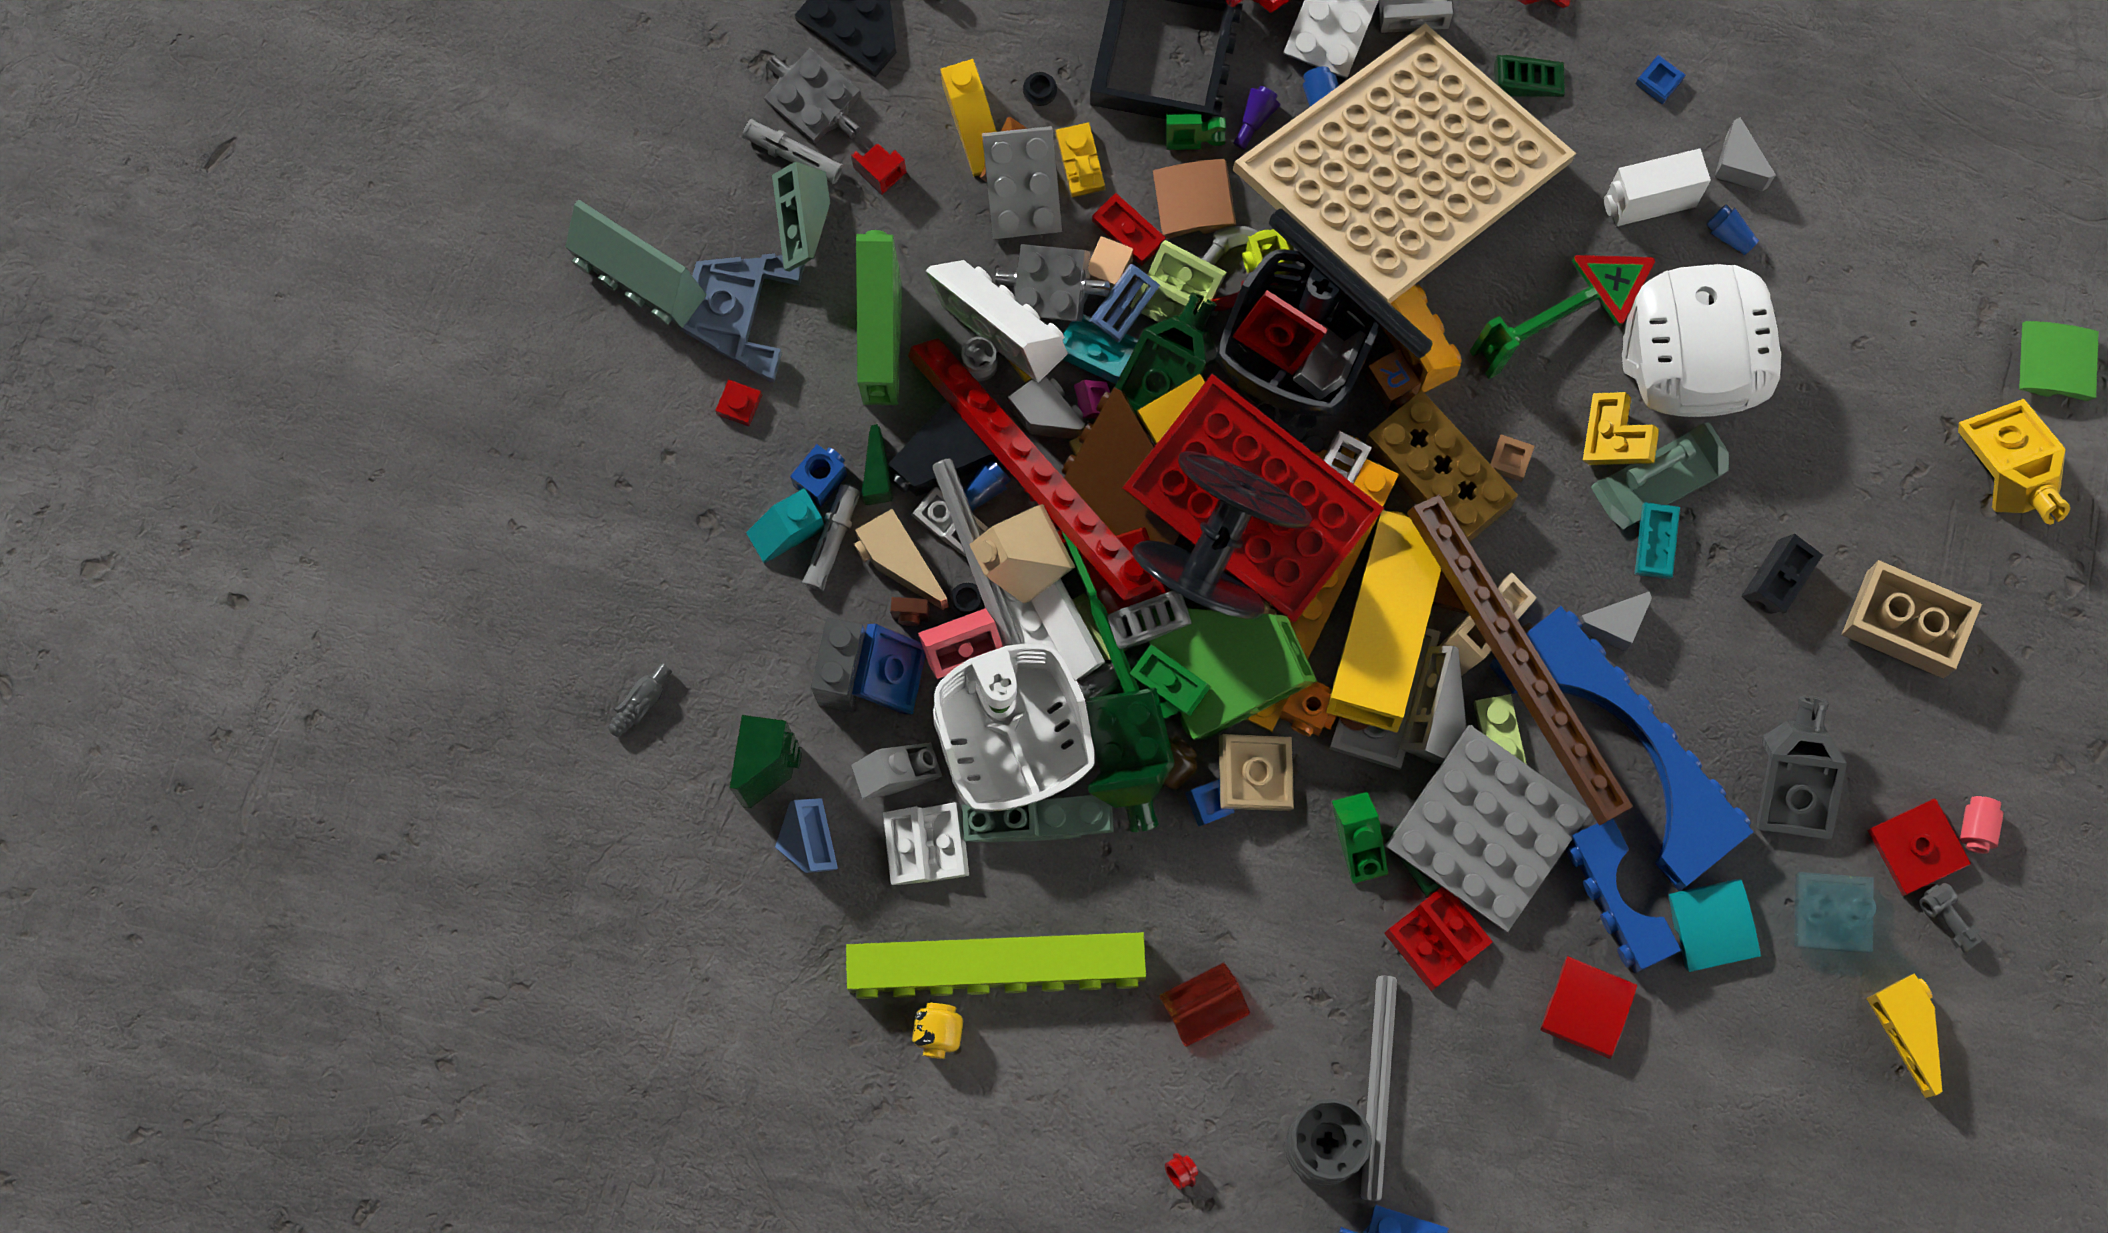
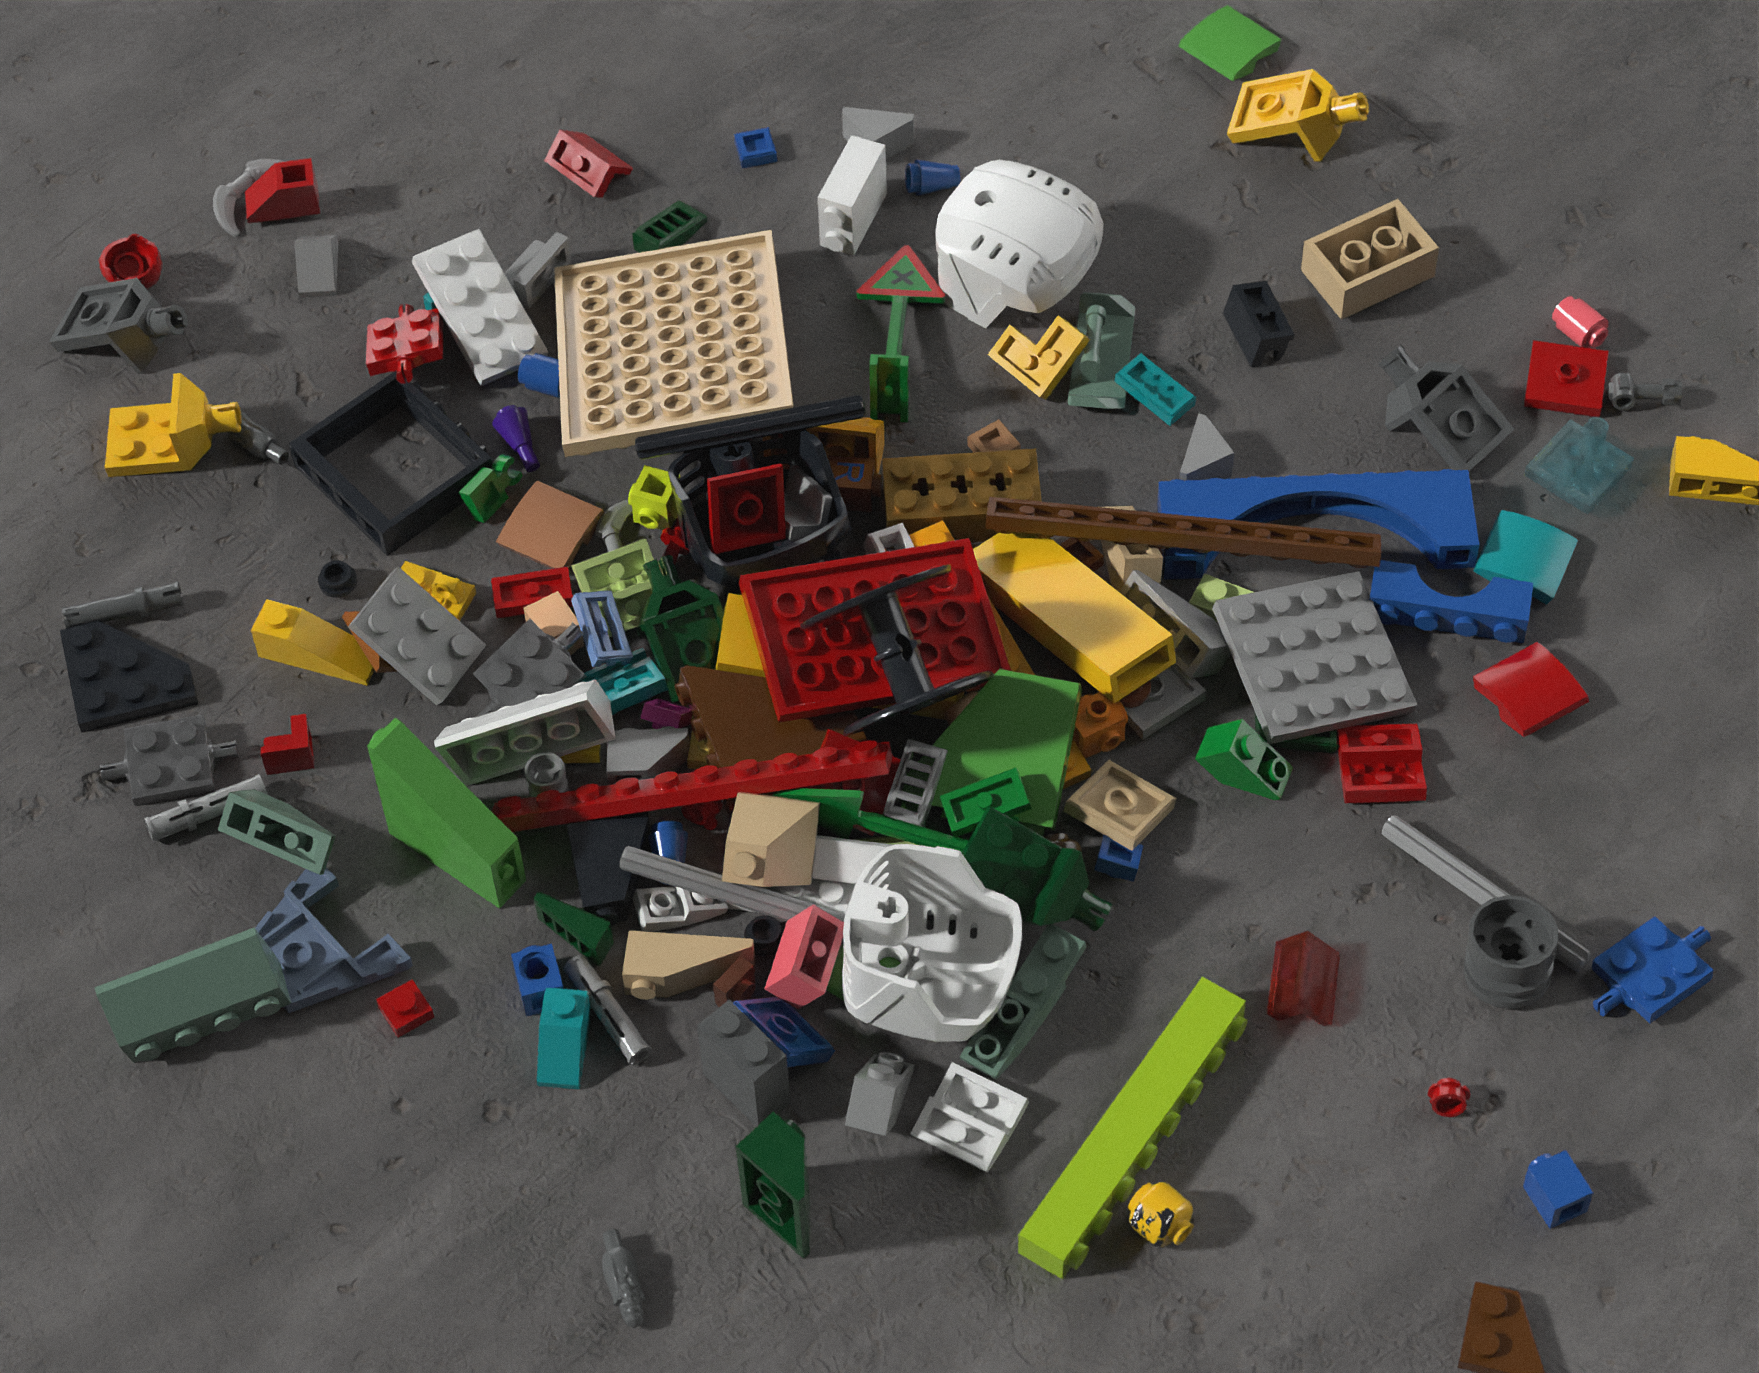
camera: 55 degrees left, 20 degrees down
(807, 837) = (878, 1217): medium blue slope -> none

